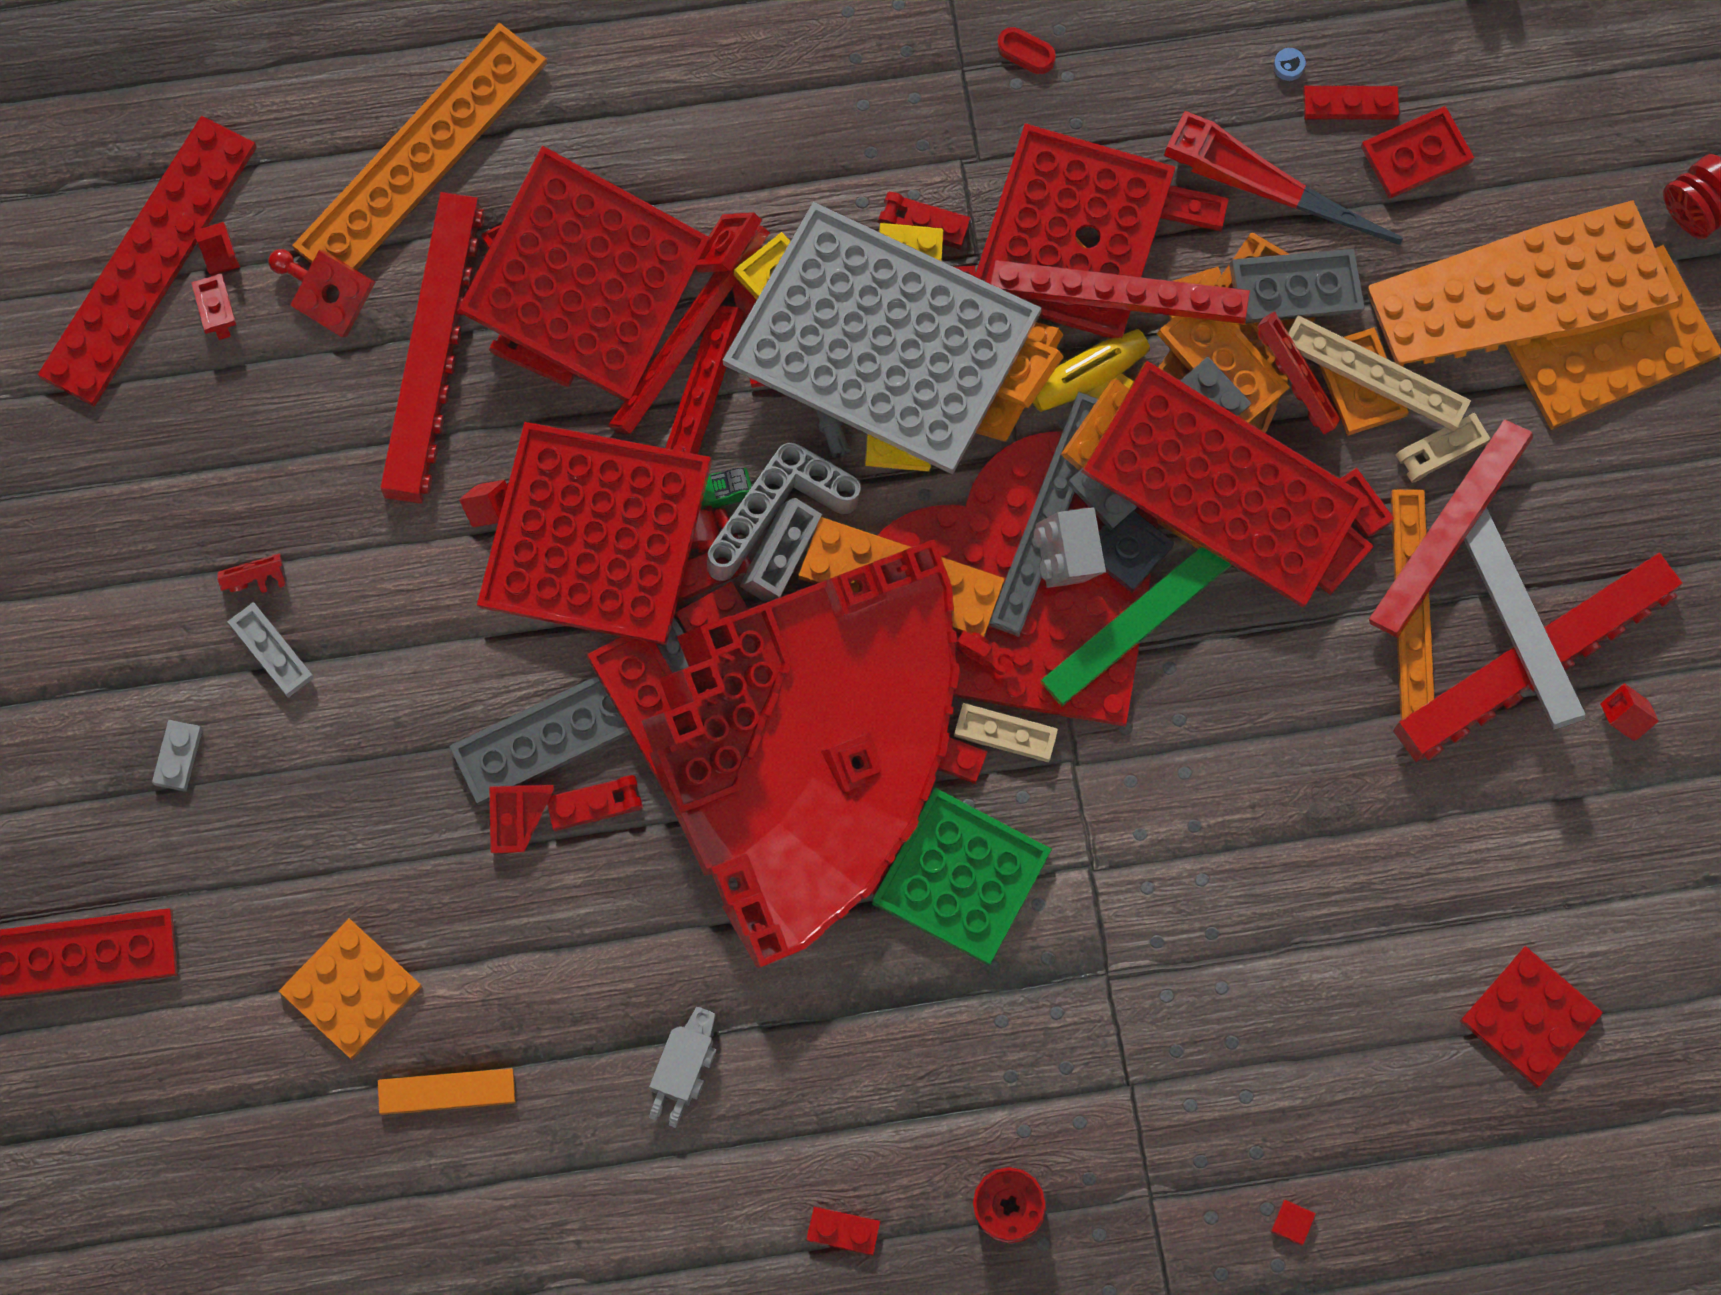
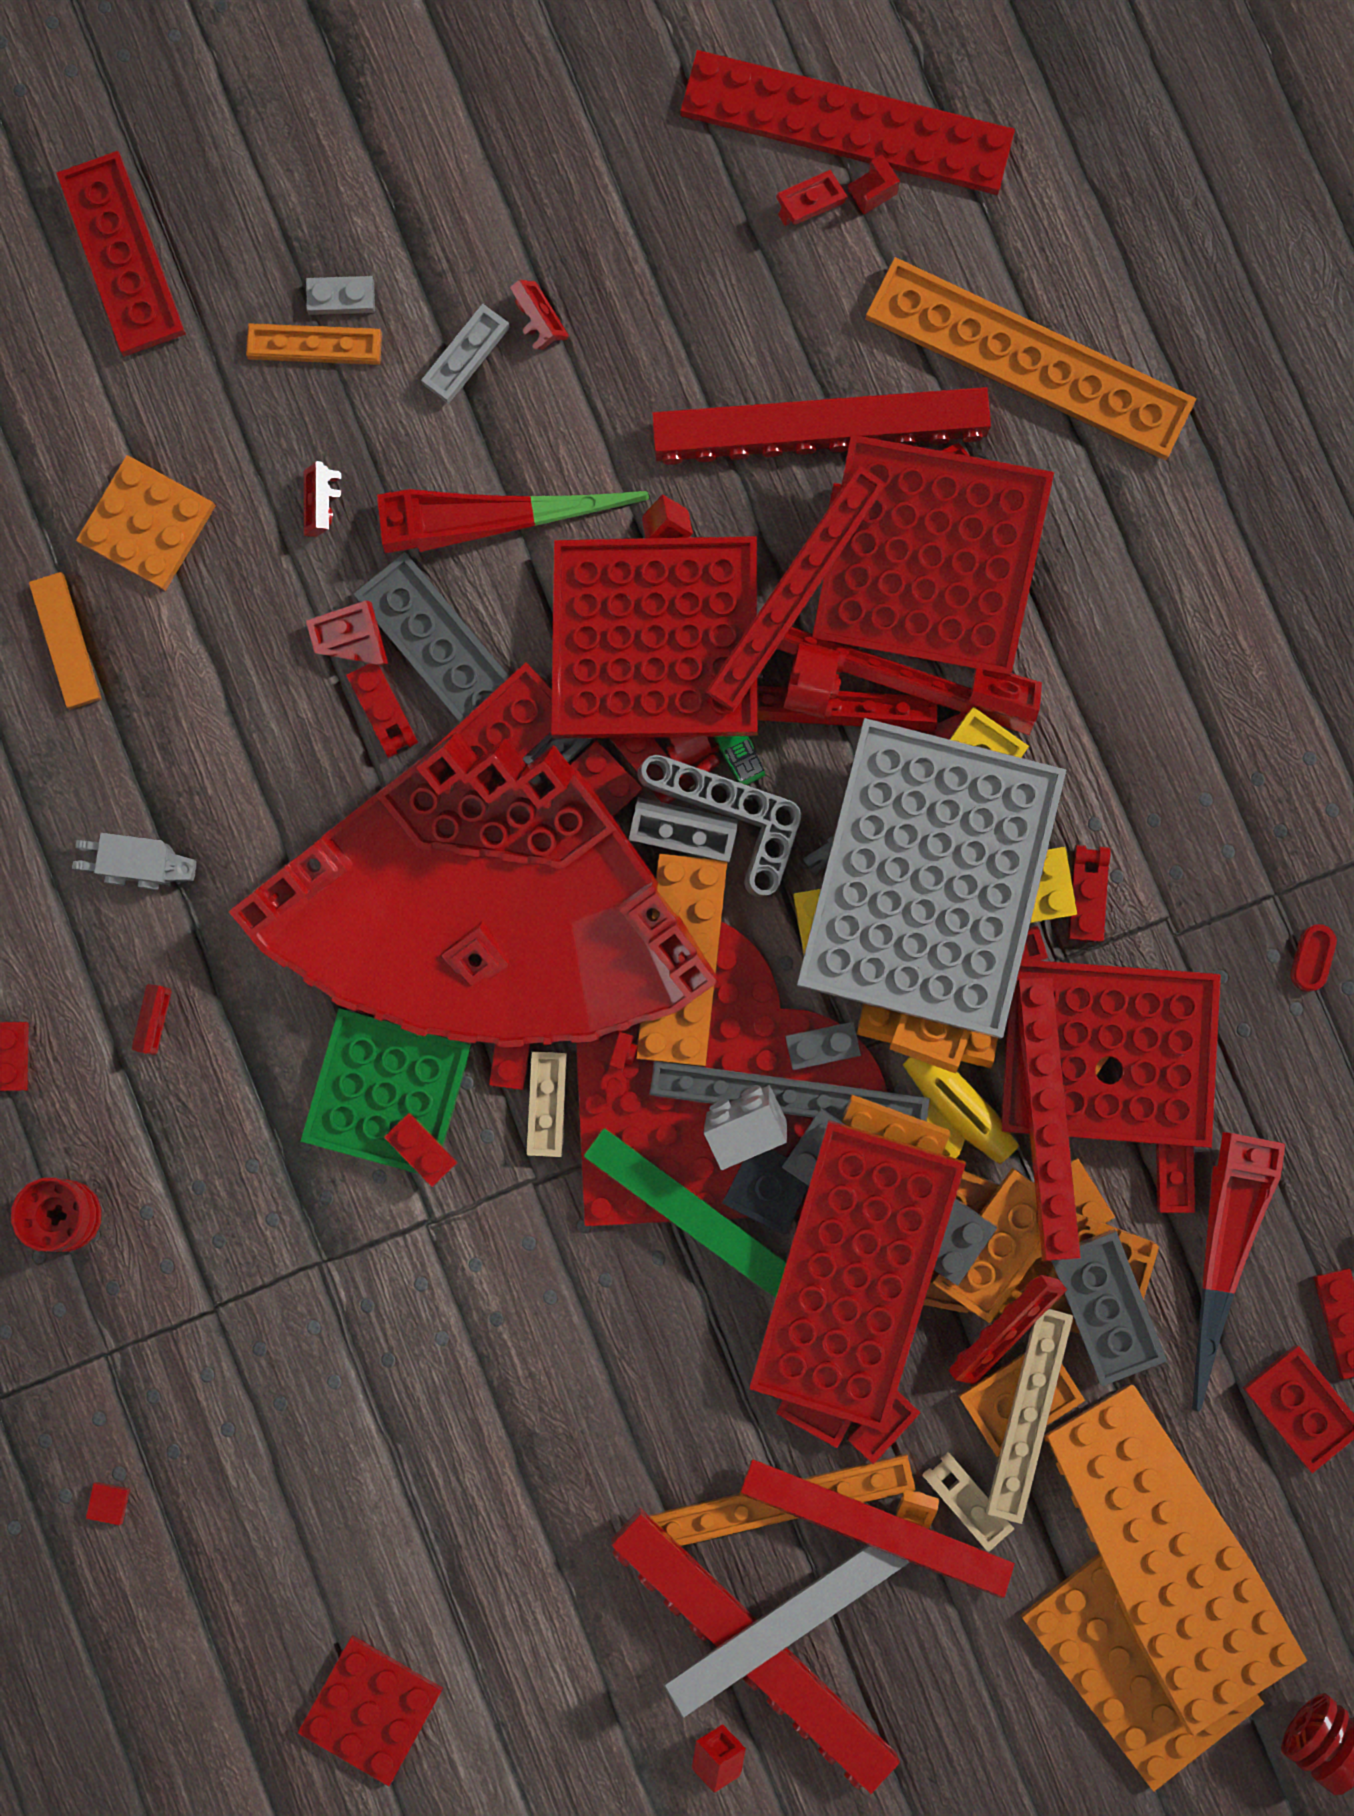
camera: 80 degrees right, 10 degrees up
(218, 791) = (314, 344): none -> orange tile
(312, 296) = (846, 291): red plate -> none
(374, 817) = (316, 498): none -> plate
(427, 704) = (442, 518): none -> red plate
(588, 391) = (795, 588): none -> red tile
(674, 400) = (814, 680): none -> red brick
(839, 1084) = (151, 1019): none -> red slope
(1009, 473) = (822, 1045): none -> dark grey plate
(1023, 851) = (421, 1149): none -> red plate
(1439, 489) = (917, 1508): none -> orange plate

